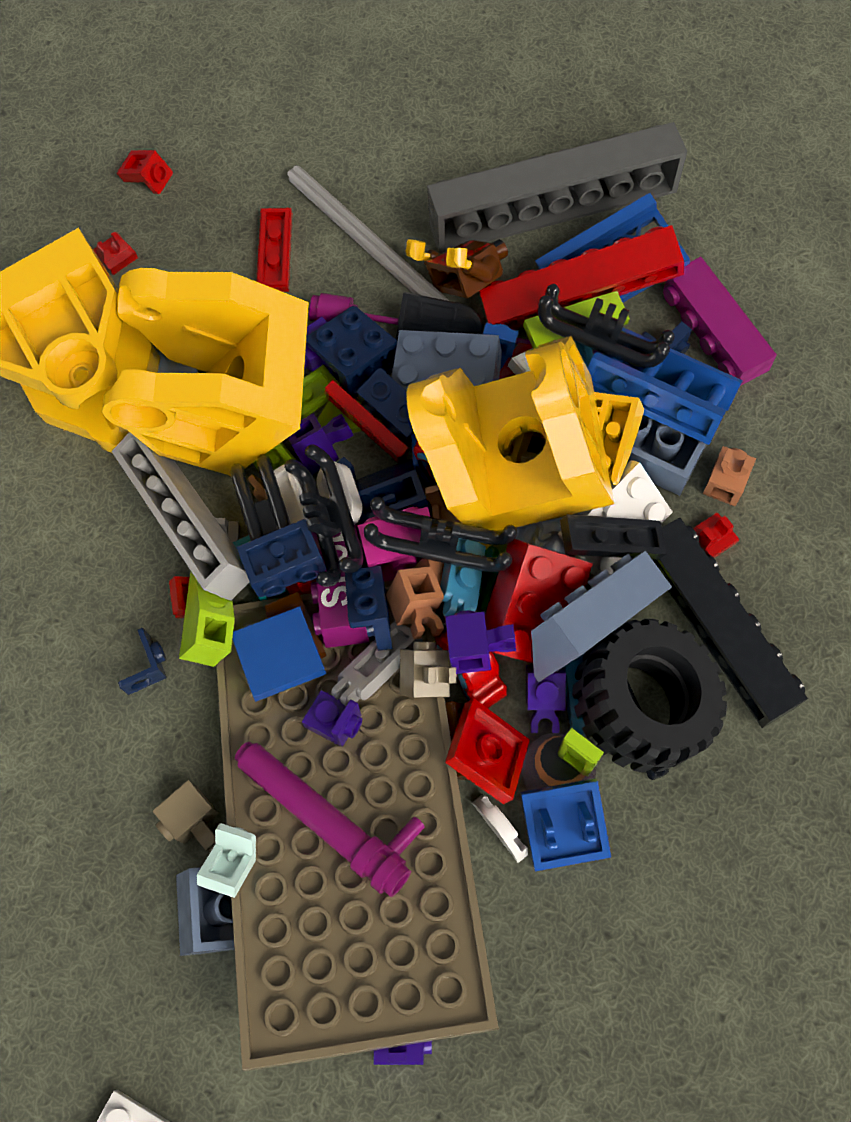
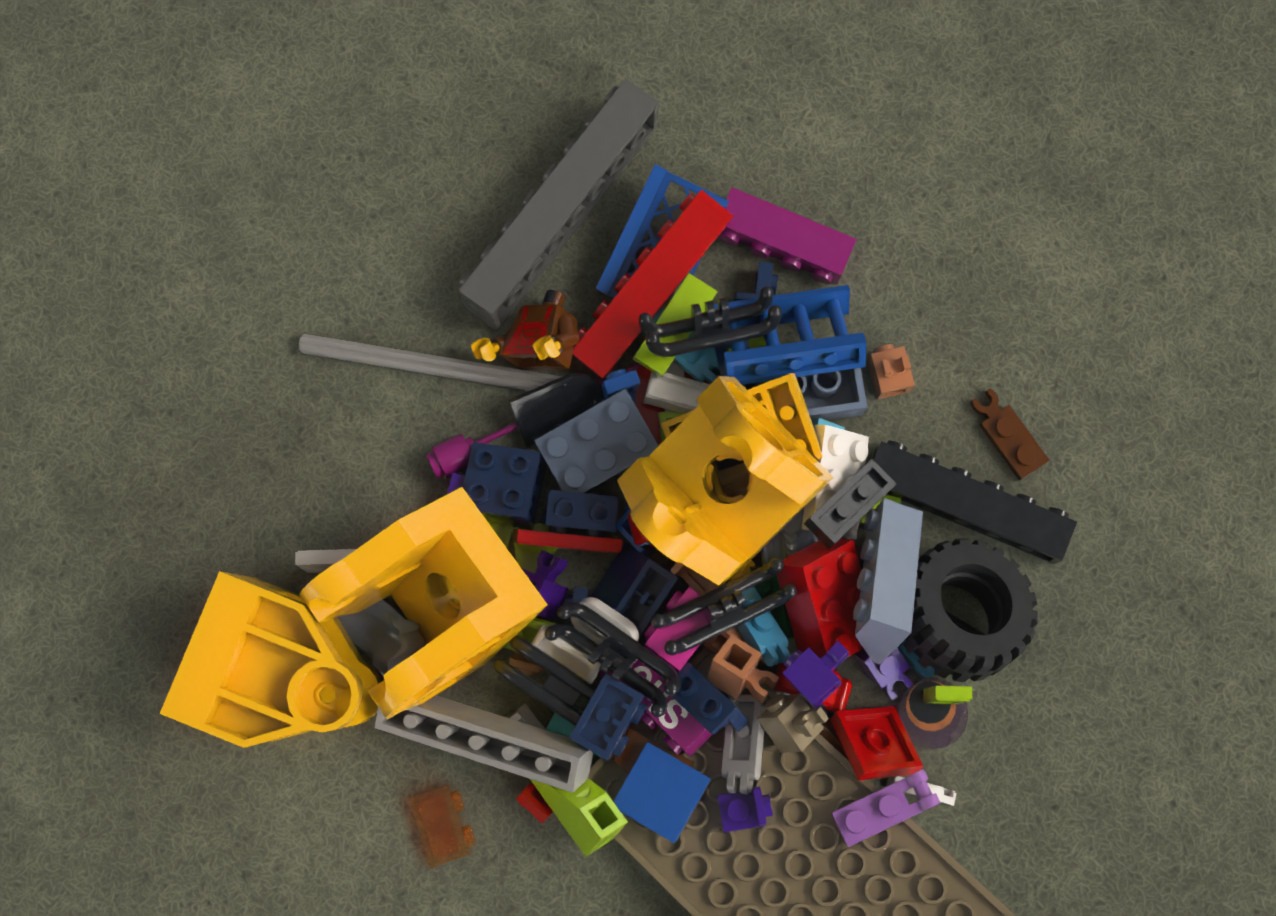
camera: 45 degrees left, 10 degrees up
(103, 565) = (442, 826): none -> clear orange bracket
(115, 253) = (202, 539): red tile -> none
(146, 167) = (160, 438): red bracket -> none
(154, 673) = (553, 865): dark blue bracket -> none
(275, 248) = (346, 431): red tile -> none
(367, 855) = (859, 894): magenta cylinder -> none
(449, 804) = (884, 809): none -> medium lavender plate
(565, 824) = (970, 752): blue plate -> none
(716, 535) = (913, 431): red tile -> none
(798, 597) = (1010, 437): none -> reddish brown plate

